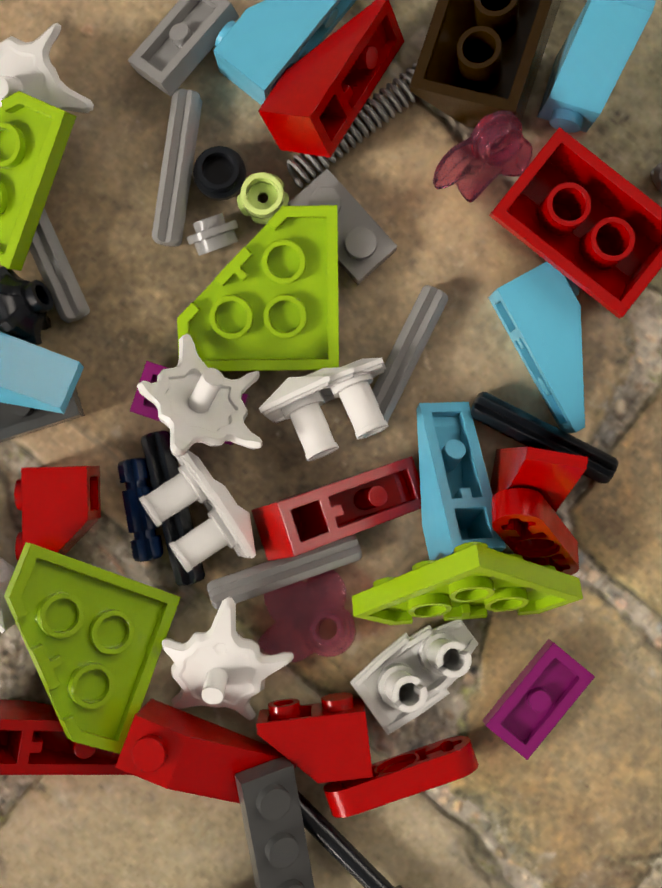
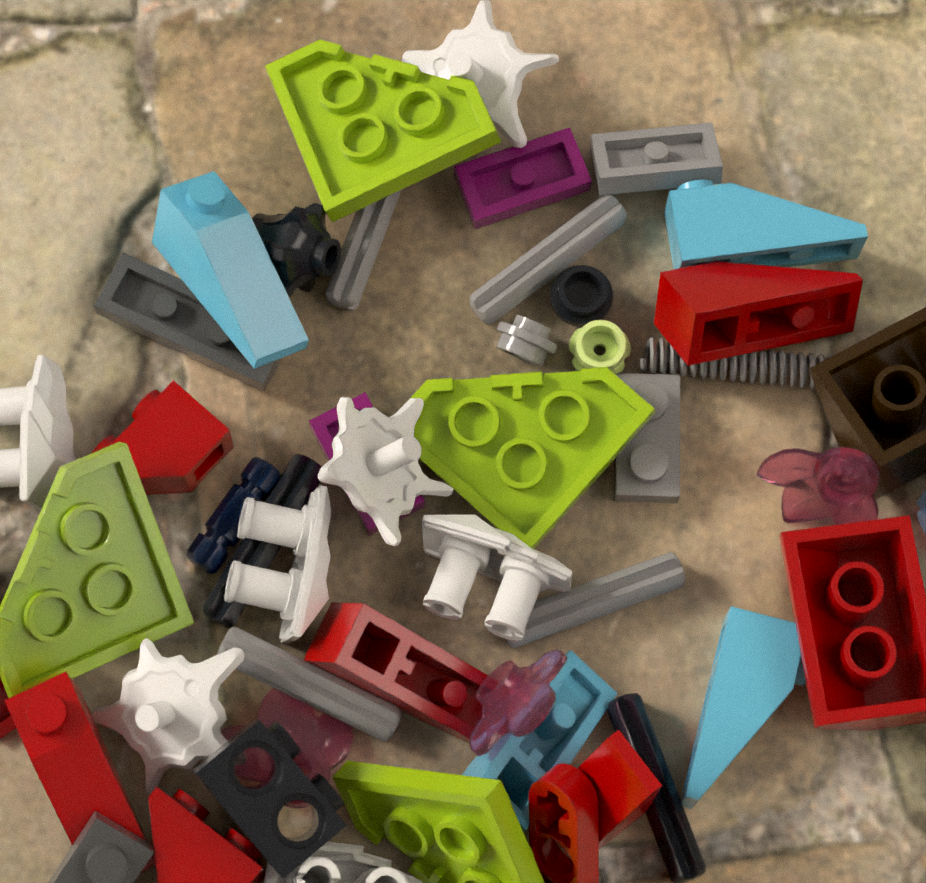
camera: 40 degrees right, 15 degrees down
(112, 129) = (522, 178): none -> magenta plate
(328, 684) = (258, 806): none -> black brick
(424, 471) = (515, 700): none -> clear pink plate

